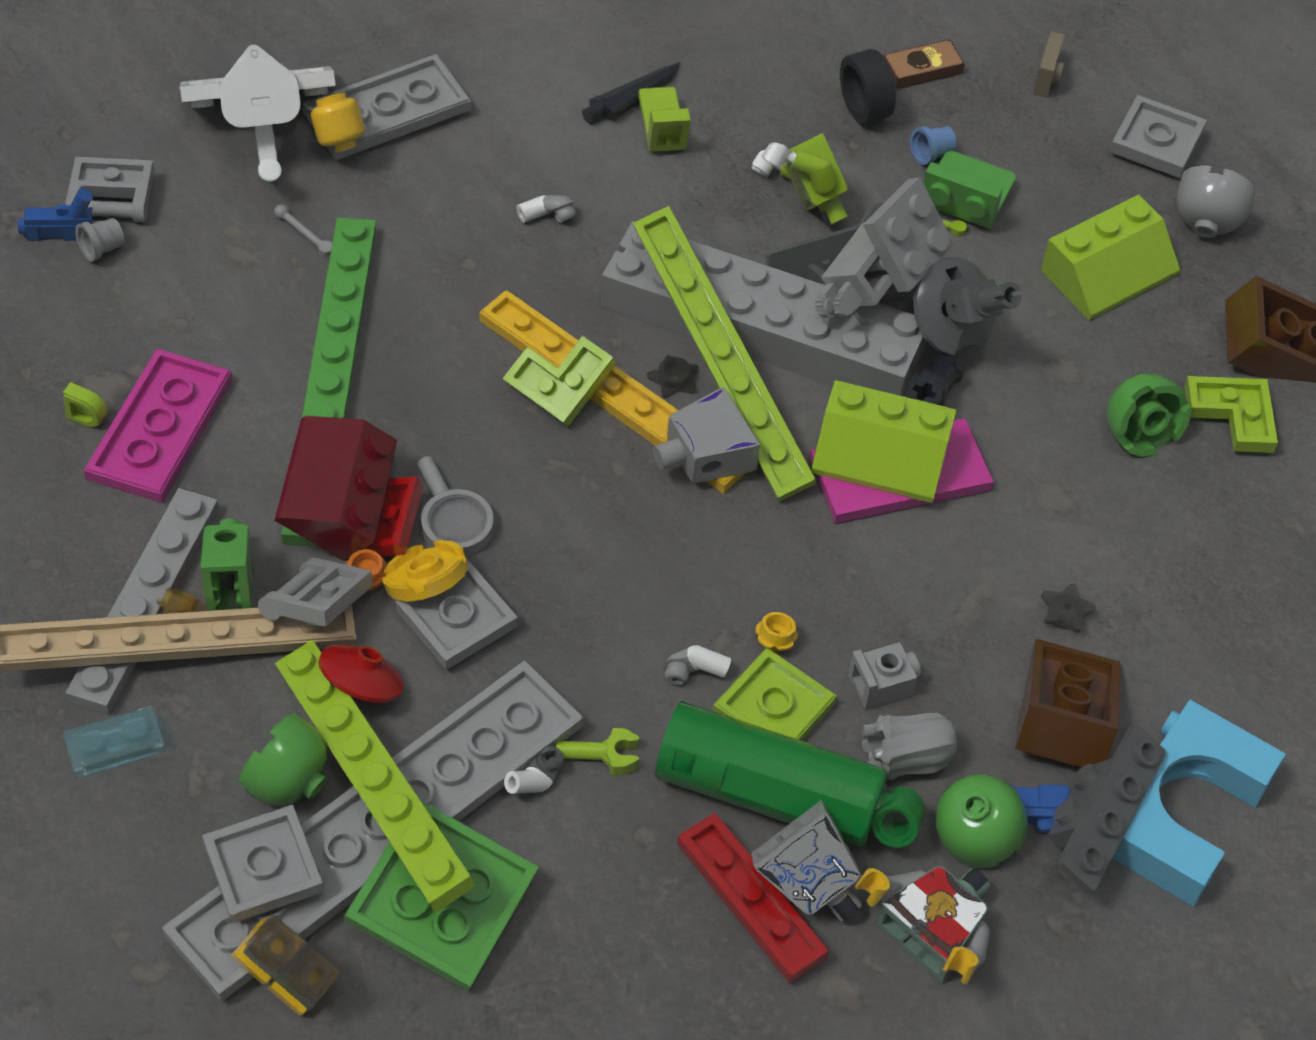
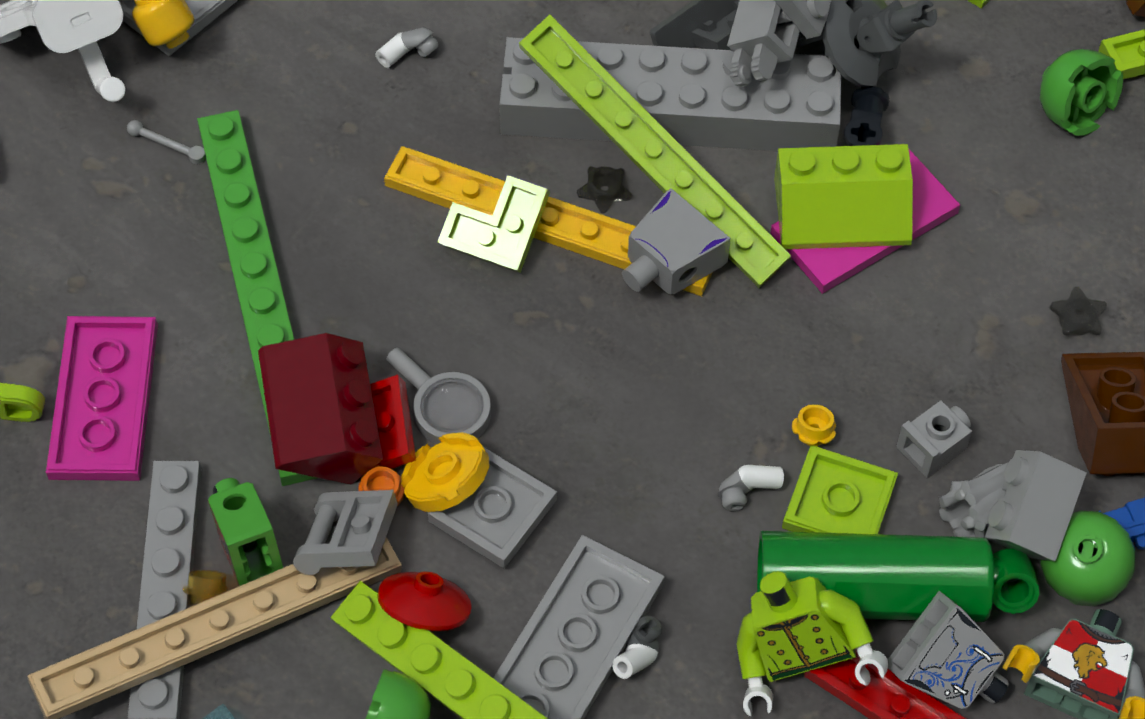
camera: 15 degrees left, 5 degrees up
(606, 751) = (696, 602): lime bar -> none
(679, 797) = (800, 630): none -> lime torso
(942, 753) = (1035, 504): none -> light grey piece

